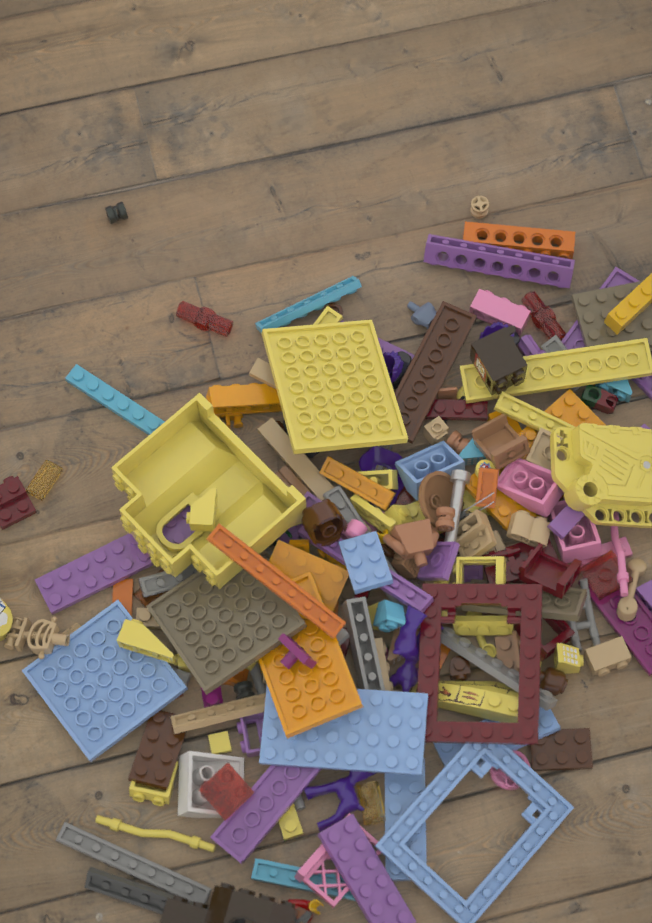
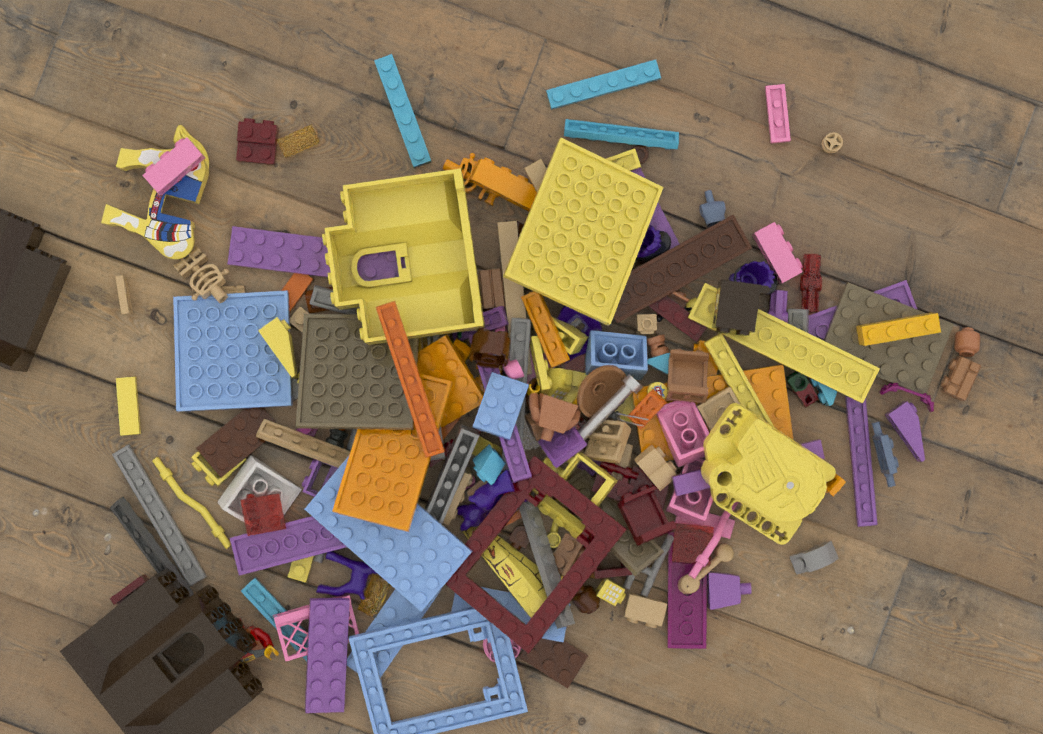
camera: 30 degrees right, 20 degrees up
(42, 789) = (128, 406): none -> light yellow tile
(203, 512) = (397, 272): light yellow slope -> none
(204, 318) = (525, 86): clear red piece -> none
(220, 743) = (290, 464): light yellow tile -> none
(266, 279) = (603, 84): none -> medium azure plate
(295, 653) = (387, 448): magenta tile -> none
(420, 212) = (777, 113): none -> bright pink plate
(445, 519) = (588, 416): nougat wheel -> none
(492, 254) = (810, 207): medium lavender brick -> none
(526, 235) = (882, 225): orange brick -> none

